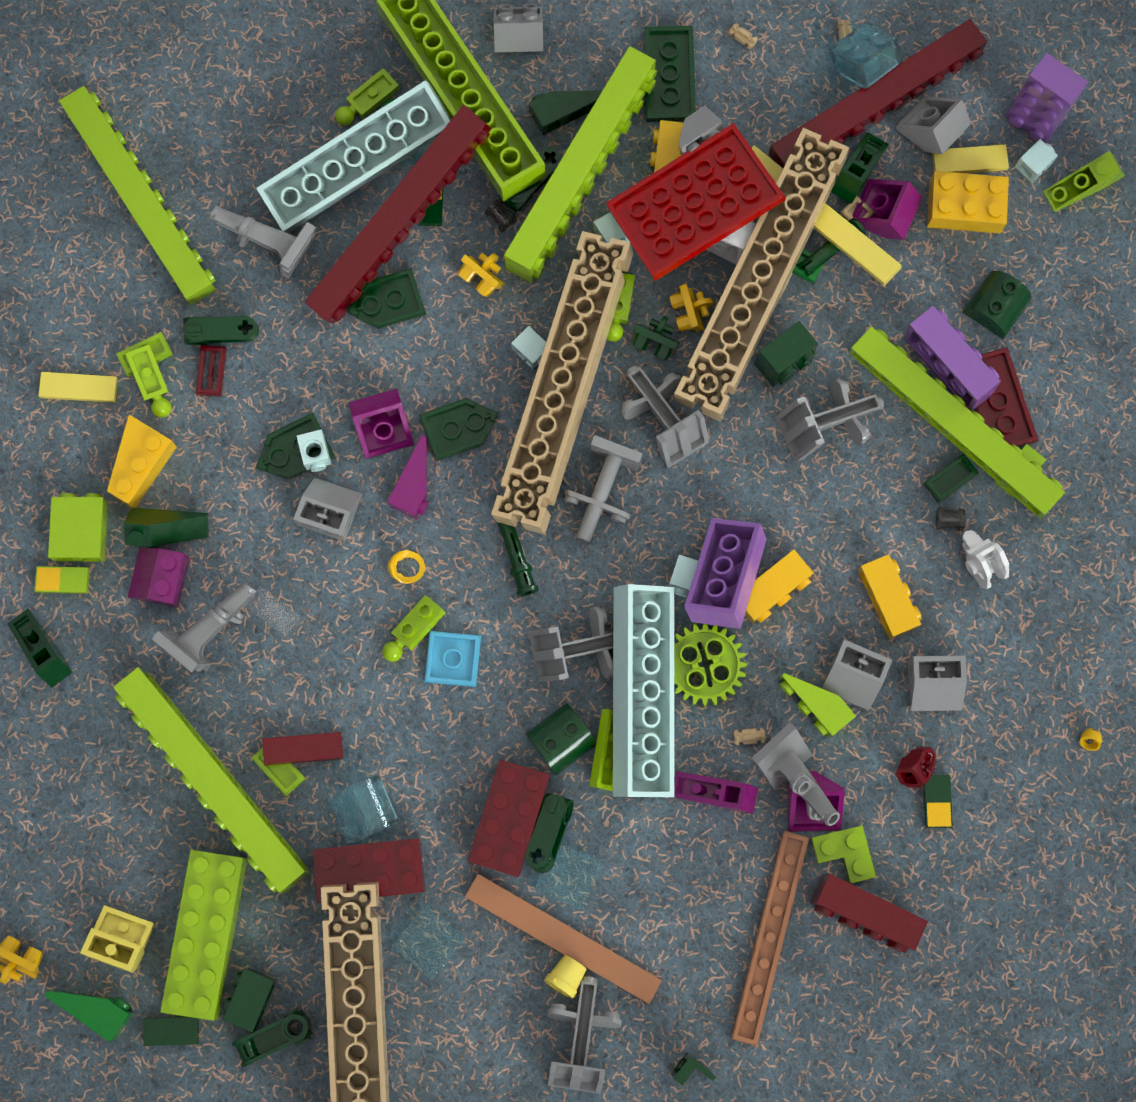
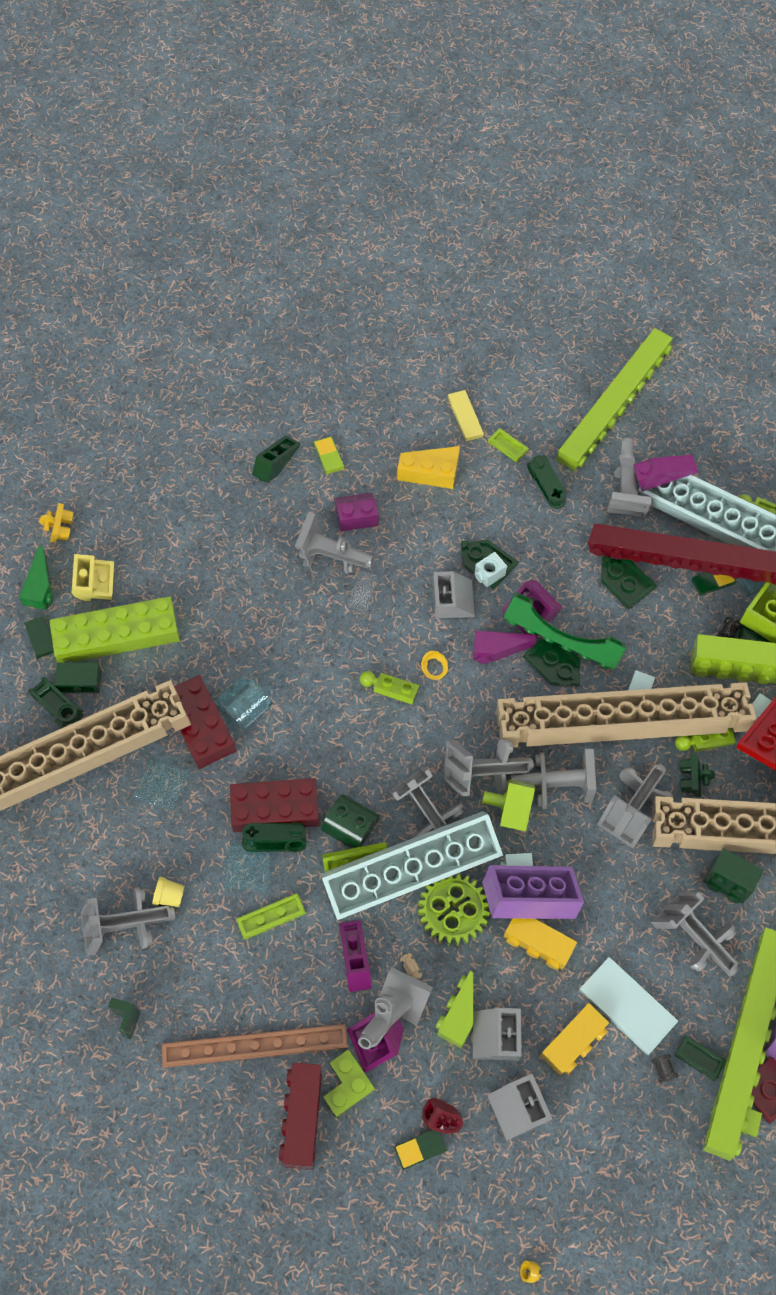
camera: 70 degrees right, 15 degrees down
(78, 528) = (368, 449): lime brick -> none
(149, 379) = (491, 452): lime plate -> none
(162, 527) = (392, 498): dark green slope -> none
(212, 780) = (223, 594): lime brick -> none
(220, 376) = (499, 487): dark red tile -> none
(278, 188) = (664, 470): none -> magenta slope
(284, 776) = (252, 636): lime tile -> none
(302, 748) = (271, 645): dark red tile -> none
(452, 659) = (379, 723): medium azure tile -> none
(472, 267) = (680, 635): yellow hips -> none
(472, 366) = (605, 650): none -> green arch
(520, 568) = (467, 743): dark green pin -> none
(554, 590) = (461, 766): none -> light grey piece
(563, 938) = (197, 884): nougat tile -> none
(619, 548) = (514, 804): none -> lime brick
(634, 869) = (270, 916): none -> lime tile
(686, 299) = (735, 791): yellow hips -> none
(873, 526) = (628, 1006): none -> light aqua tile
(984, 559) = (644, 1108): white hinge -> none

